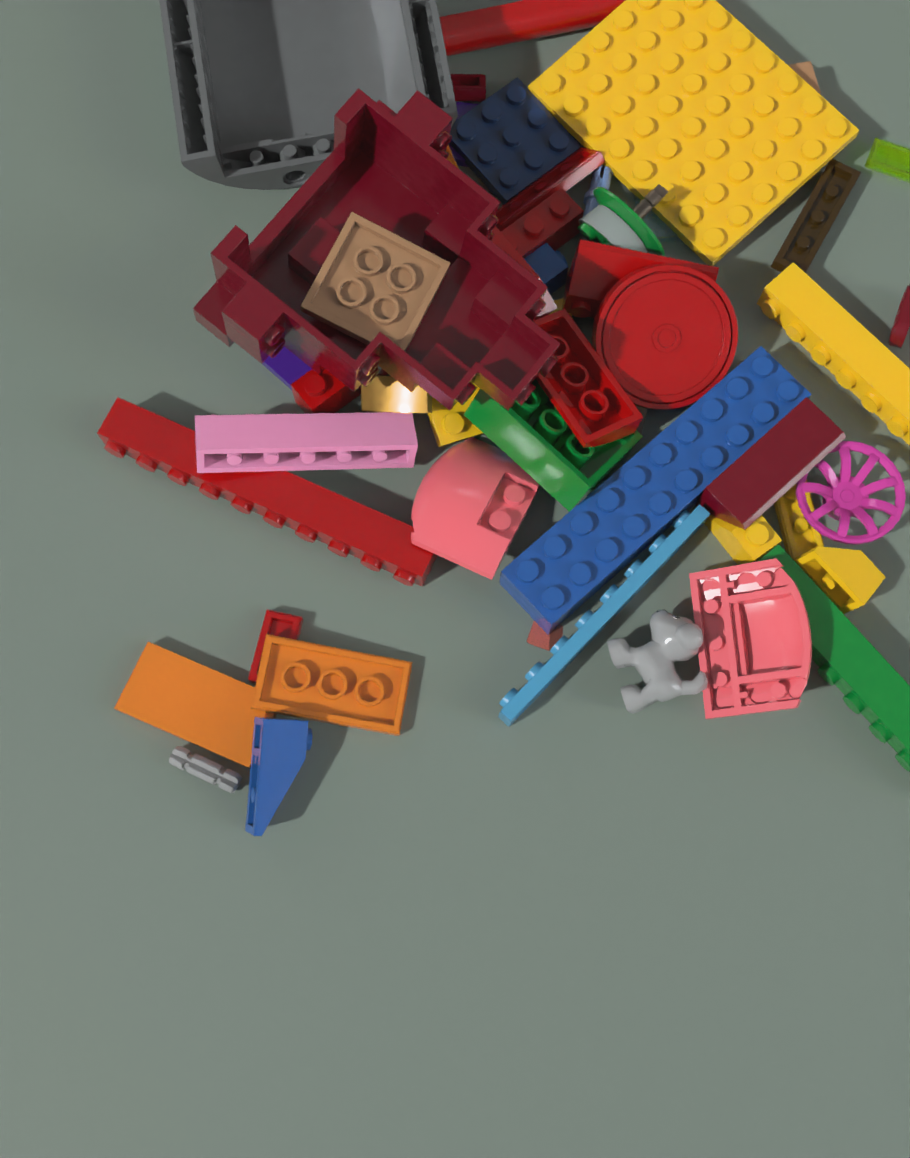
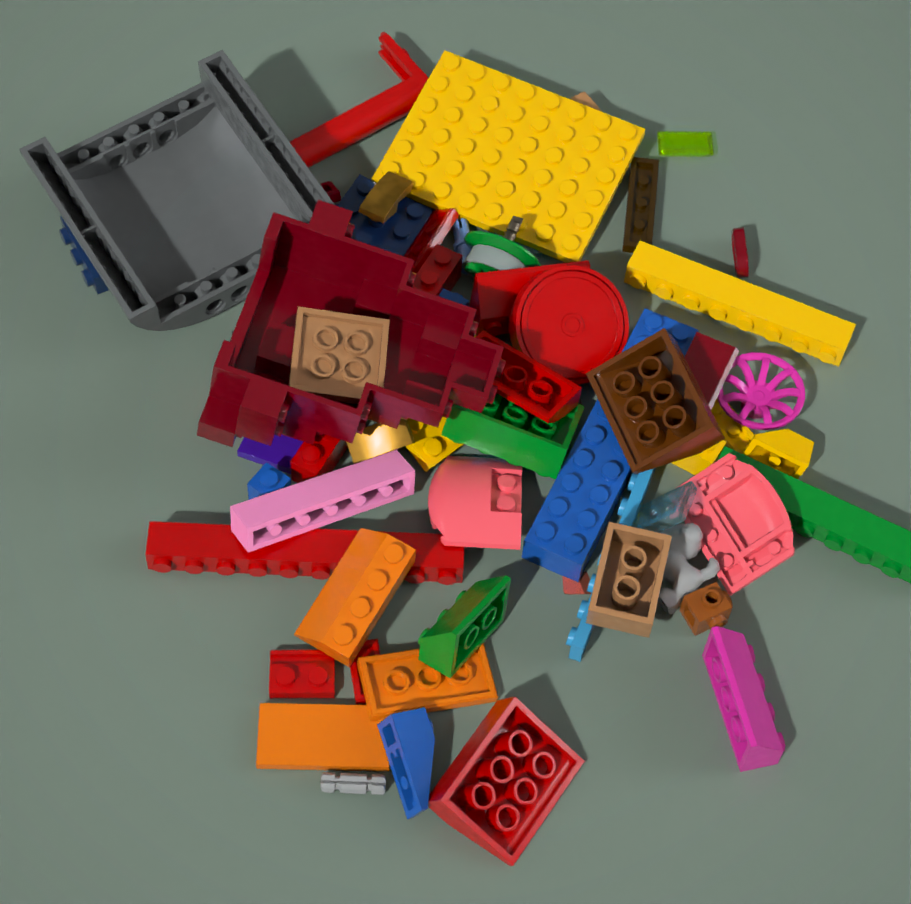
camera: 25 degrees left, 15 degrees down
(207, 625) = (301, 674): none -> red plate
(259, 398) = (266, 481): none -> blue brick
(291, 565) = (356, 595): none -> orange slope
(362, 834) = (505, 780): none -> red slope
(392, 644) = (465, 625): none -> green slope
(526, 114) = (385, 196): none -> pearl gold slope
(590, 666) = (628, 579): none -> medium nougat brick
(664, 848) = (742, 700): none -> dark pink slope
(670, 597) = (666, 509): none -> clear light blue tile
(674, 725) = (706, 608): none -> dark orange brick
(716, 468) = (654, 404): none -> reddish brown slope

